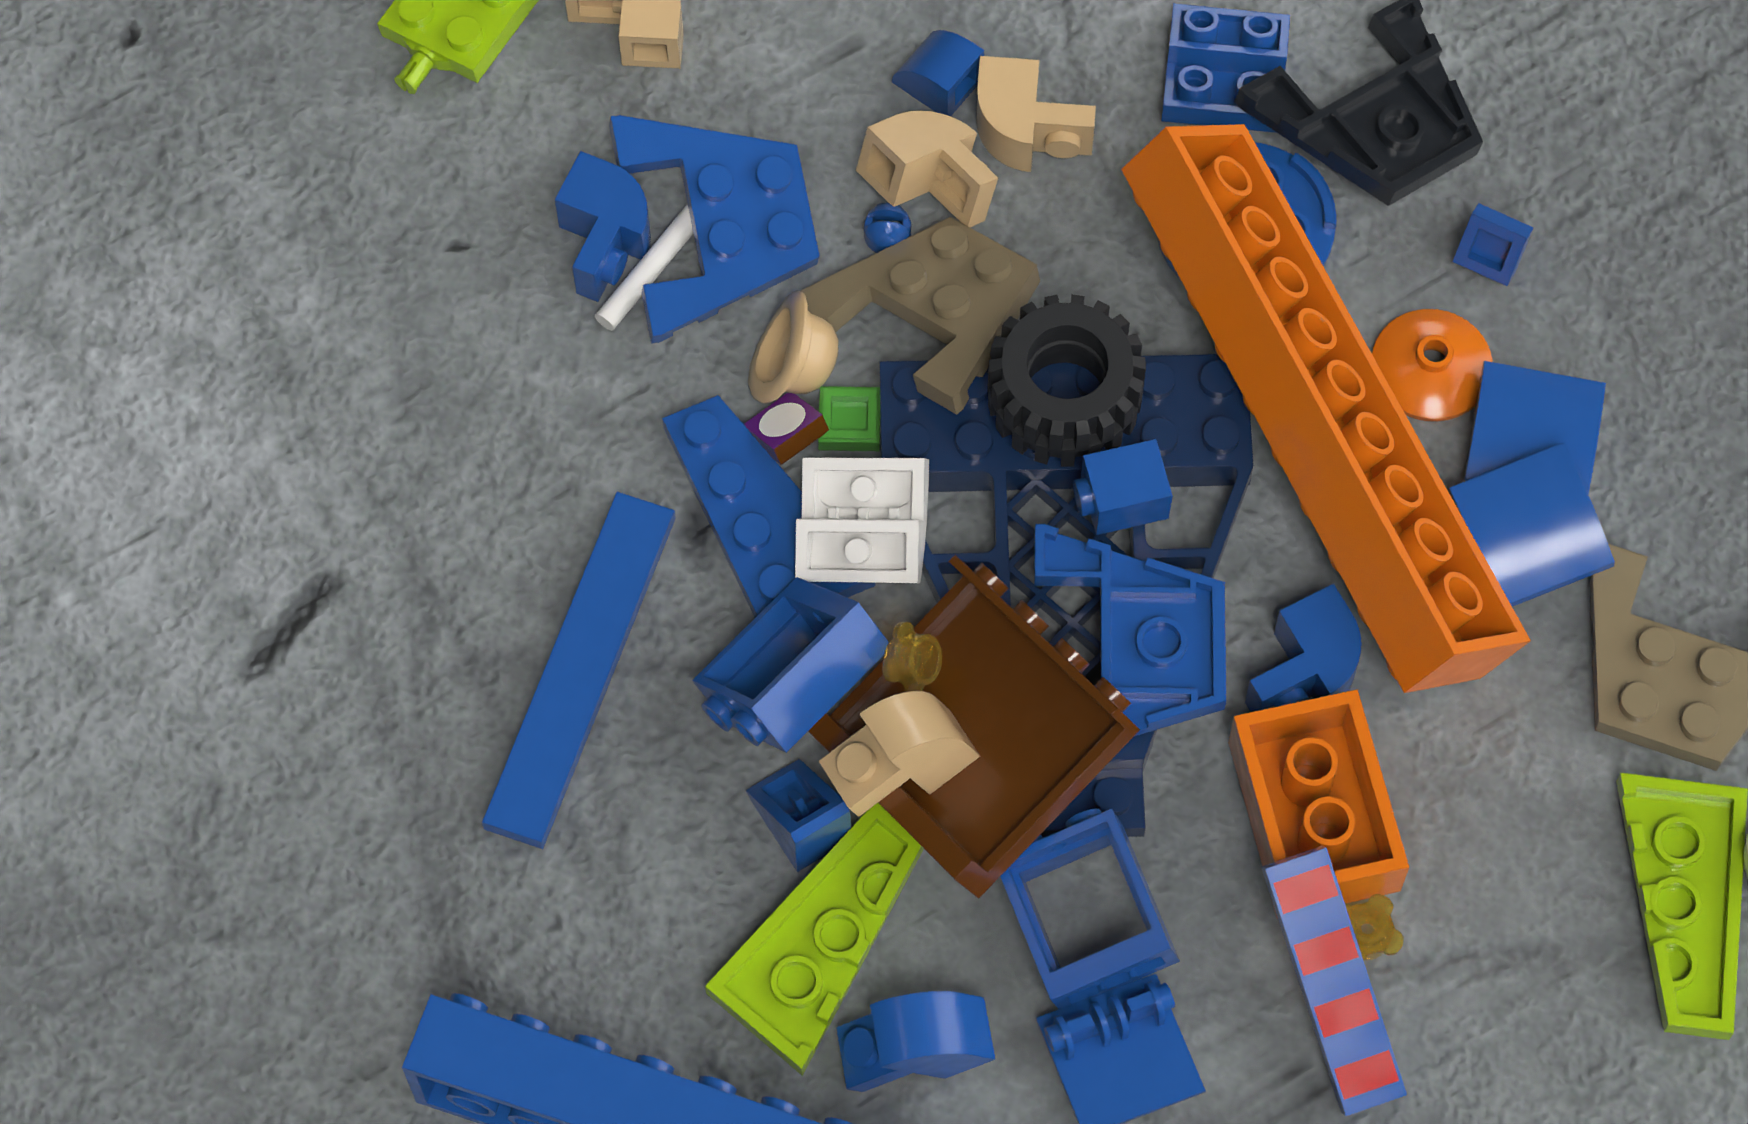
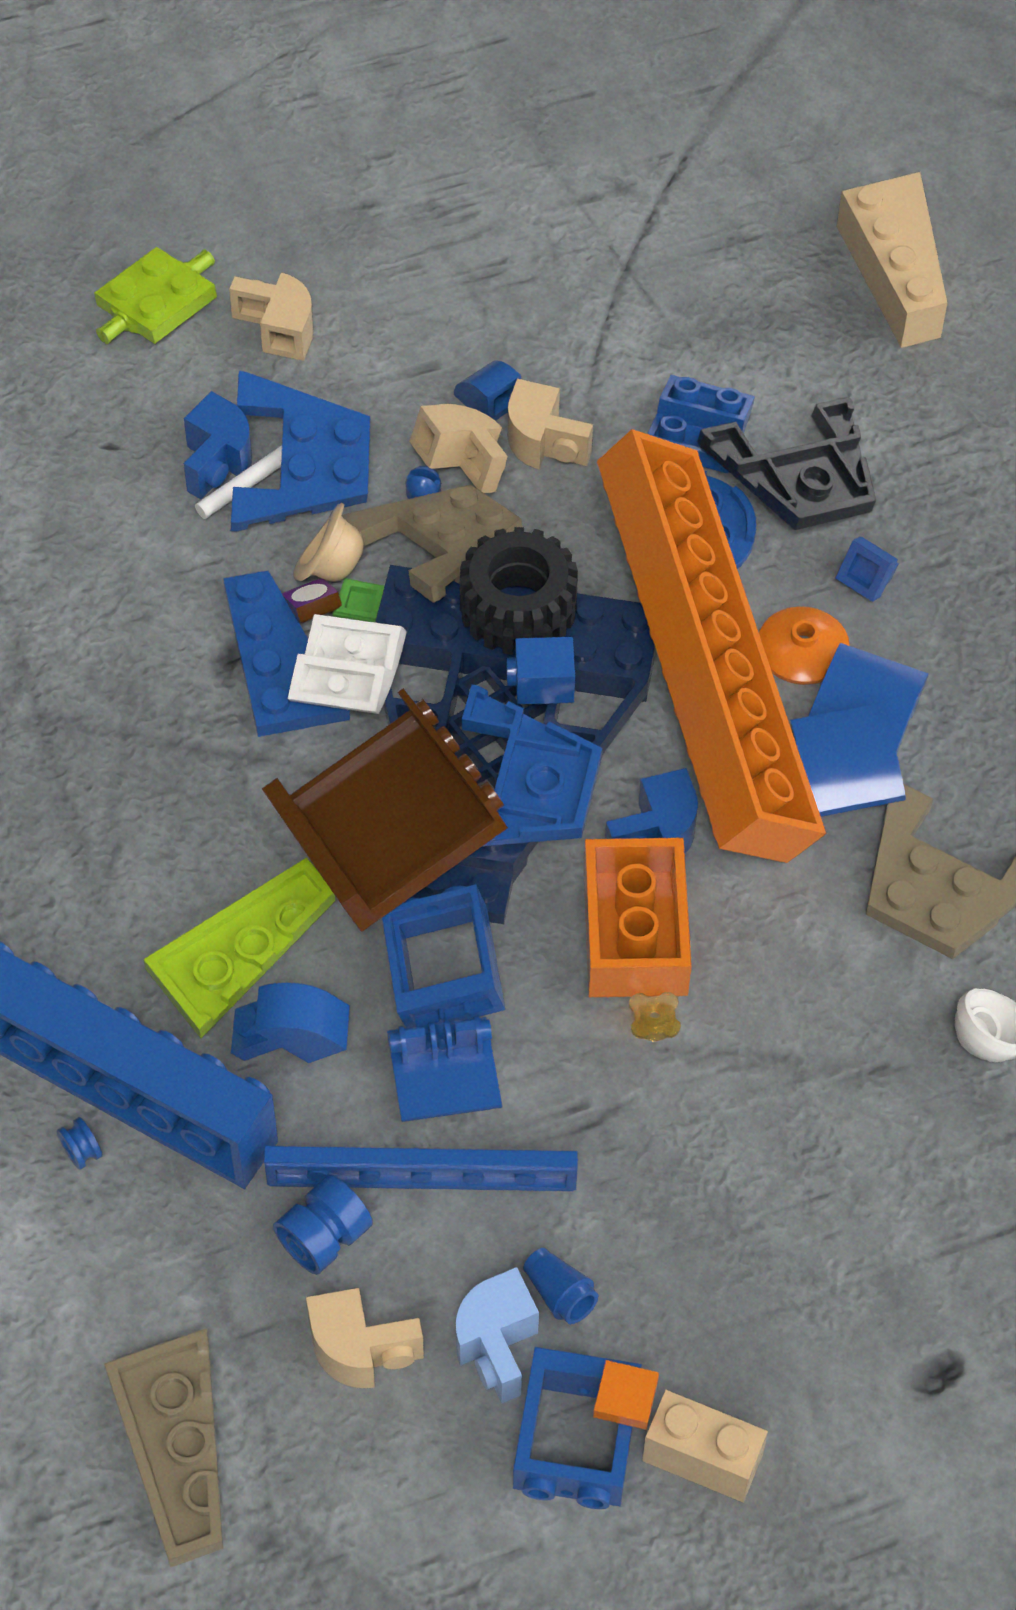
camera: 10 degrees right, 10 degrees down
(579, 671) = (114, 735): blue tile -> none
(790, 665) = (266, 749): blue window -> none
(801, 813) = (249, 858): blue slope -> none
(901, 740) = (332, 805): tan brick -> none
(912, 658) = (354, 756): clear yellow plate -> none
(1334, 980) = (615, 1038): tile -> none
(1689, 882) = (909, 1033): lime wing -> none

